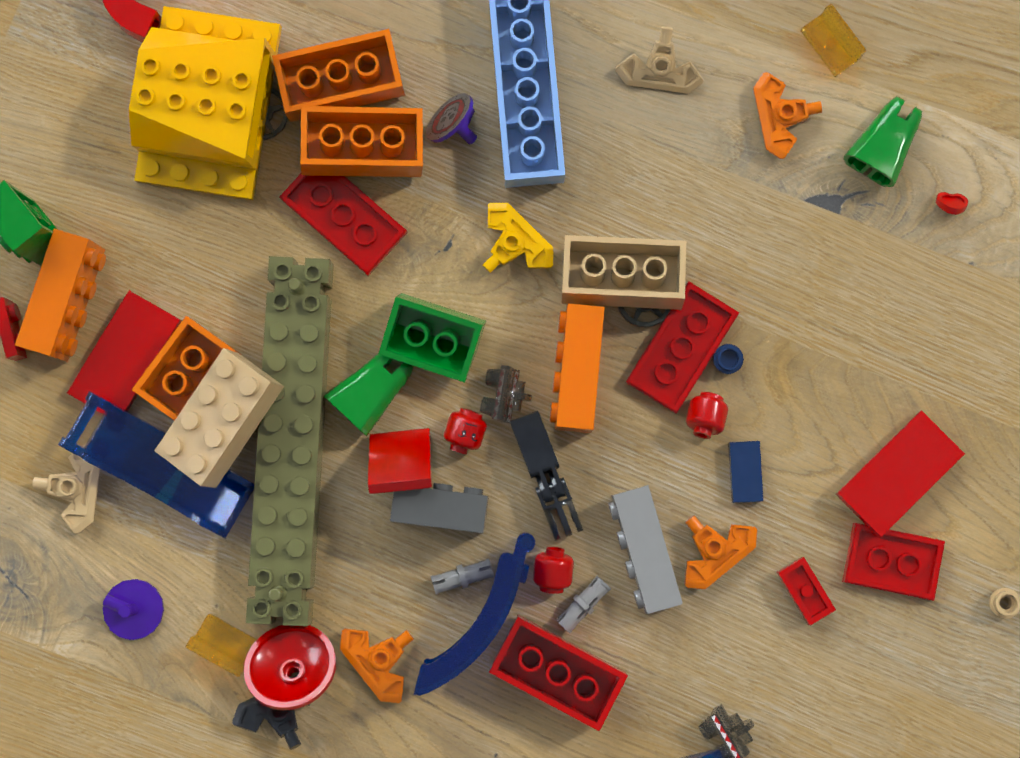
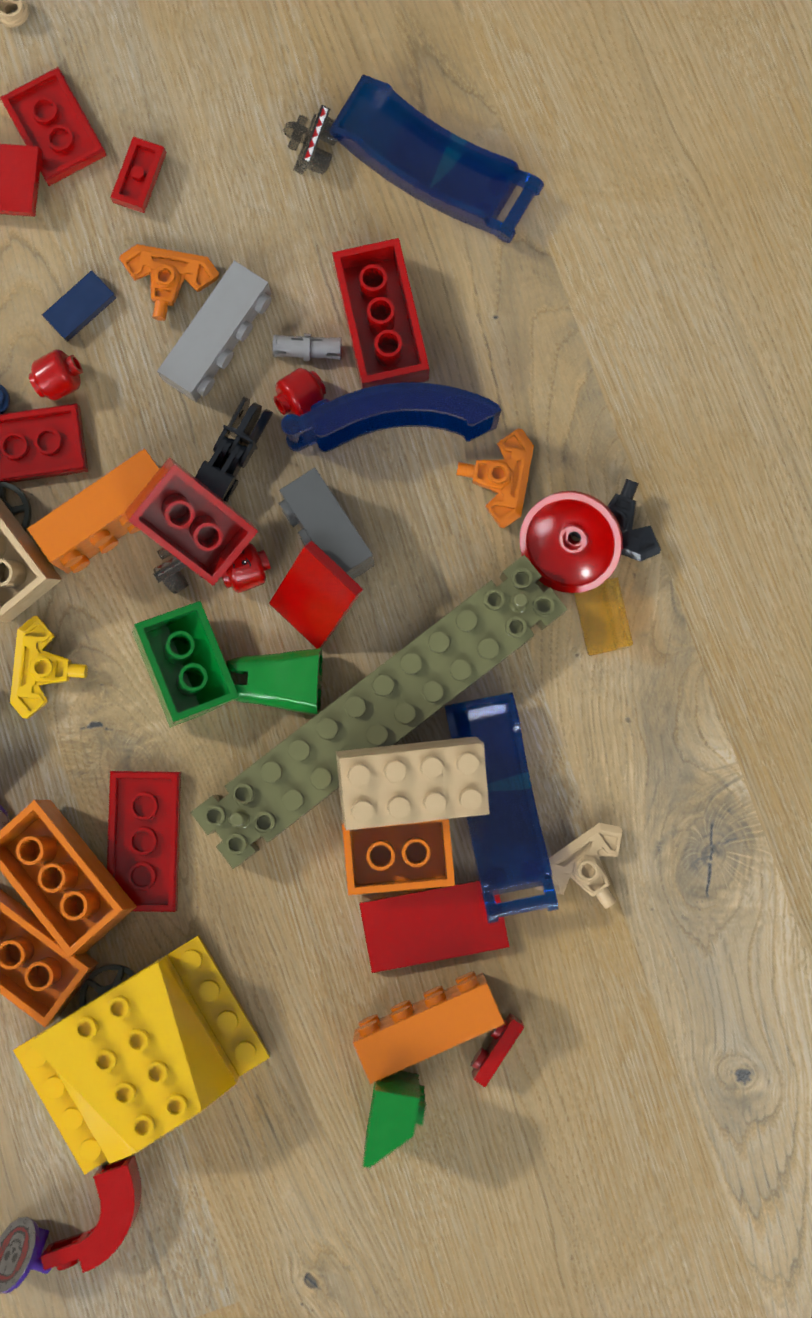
camera: 135 degrees left, 0 degrees up
(133, 609) = (641, 723): dark purple shield -> none
(462, 576) = (371, 466): light grey pin -> none
(514, 418) = (191, 521): none -> red brick

